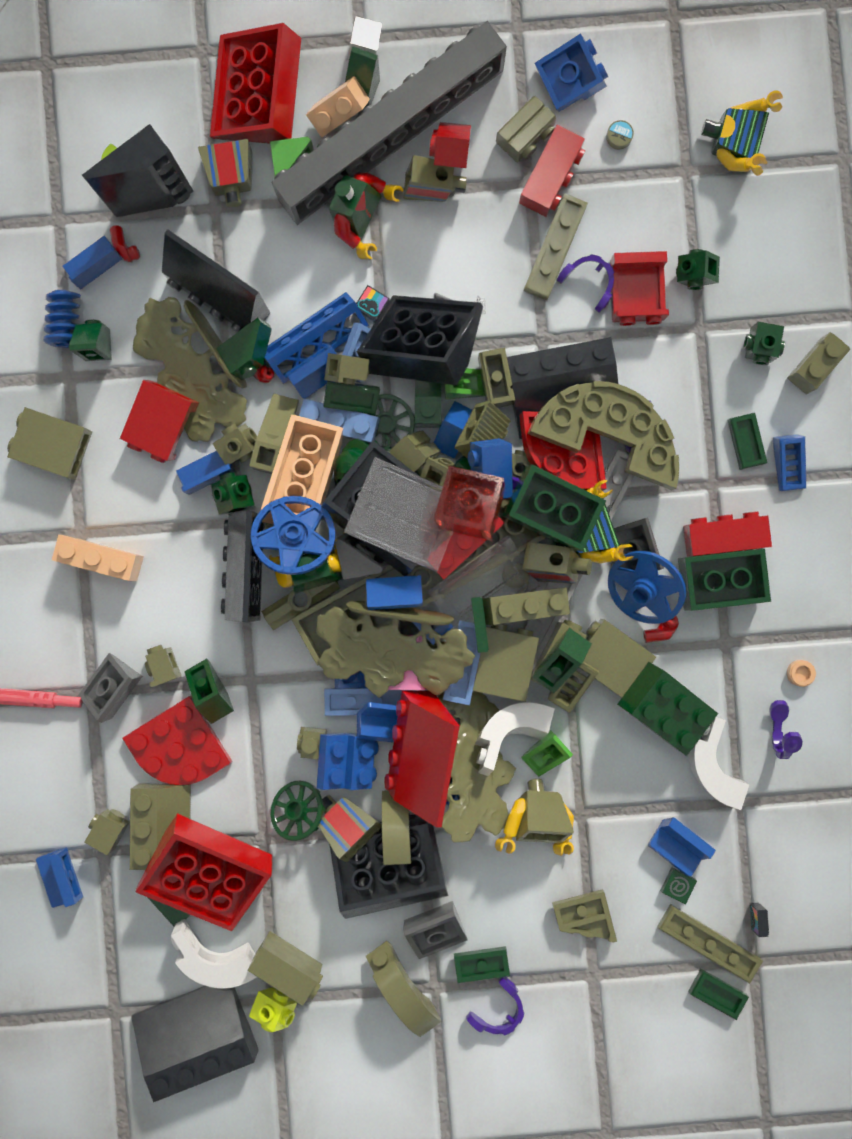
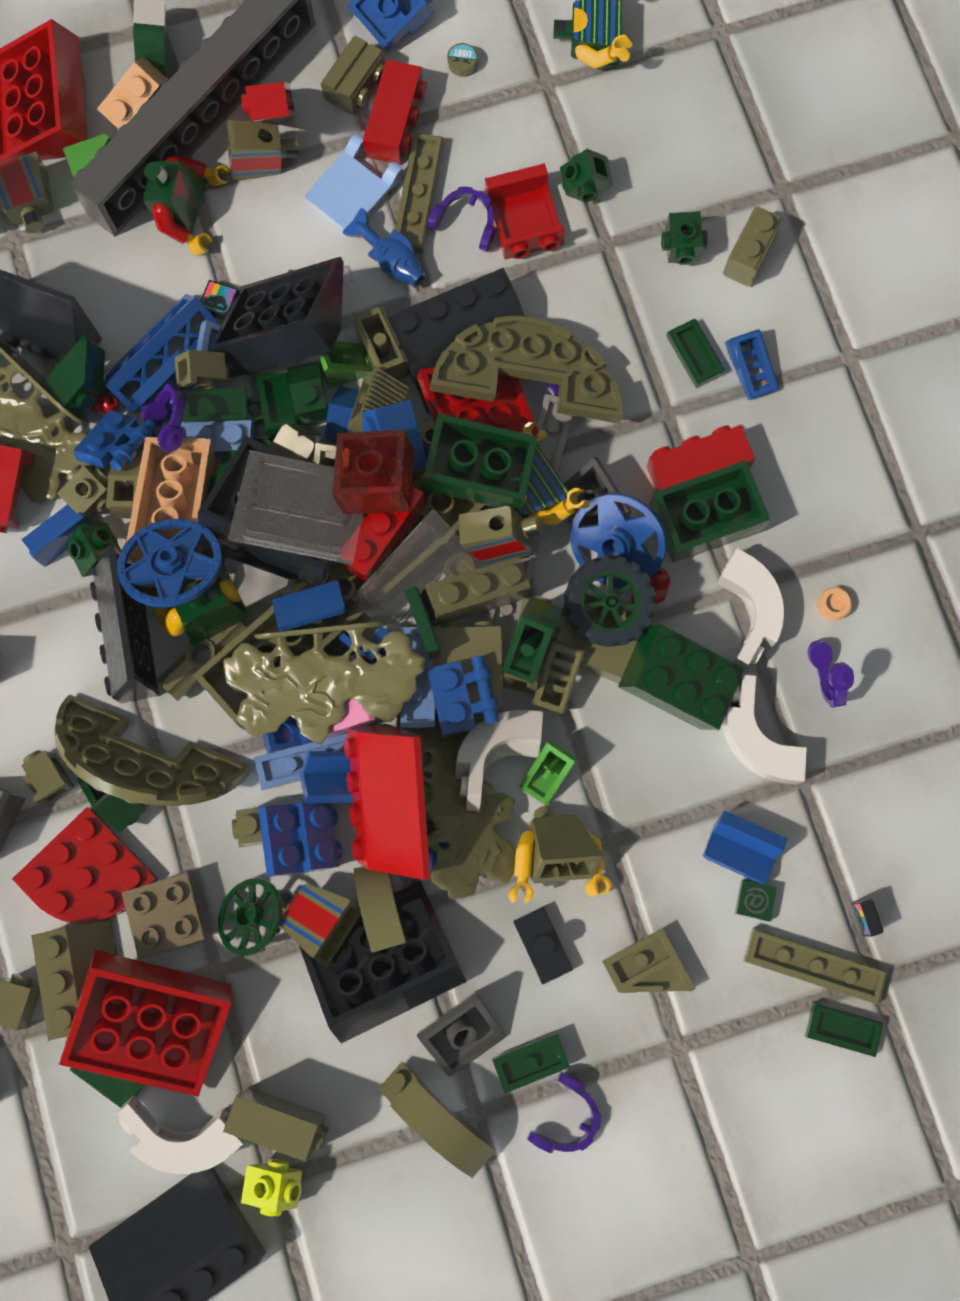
camera: 10 degrees left, 10 degrees down
(229, 682) = (93, 750): none -> olive plate
(231, 794) = (163, 916): none -> dark tan hinge
(260, 405) = (114, 440): none -> blue plate
(301, 391) = (170, 435): none -> dark purple piece
(401, 405) = (275, 401): none -> dark green tile
(488, 688) = (452, 697): none -> blue plate
(499, 230) = (351, 185): none -> light blue flag
(511, 880) = (543, 945): none -> black tile
(523, 298) = (393, 254): none -> blue animal
(633, 663) = (643, 605): none -> black wheel
(746, 662) = (764, 601): none -> white arch

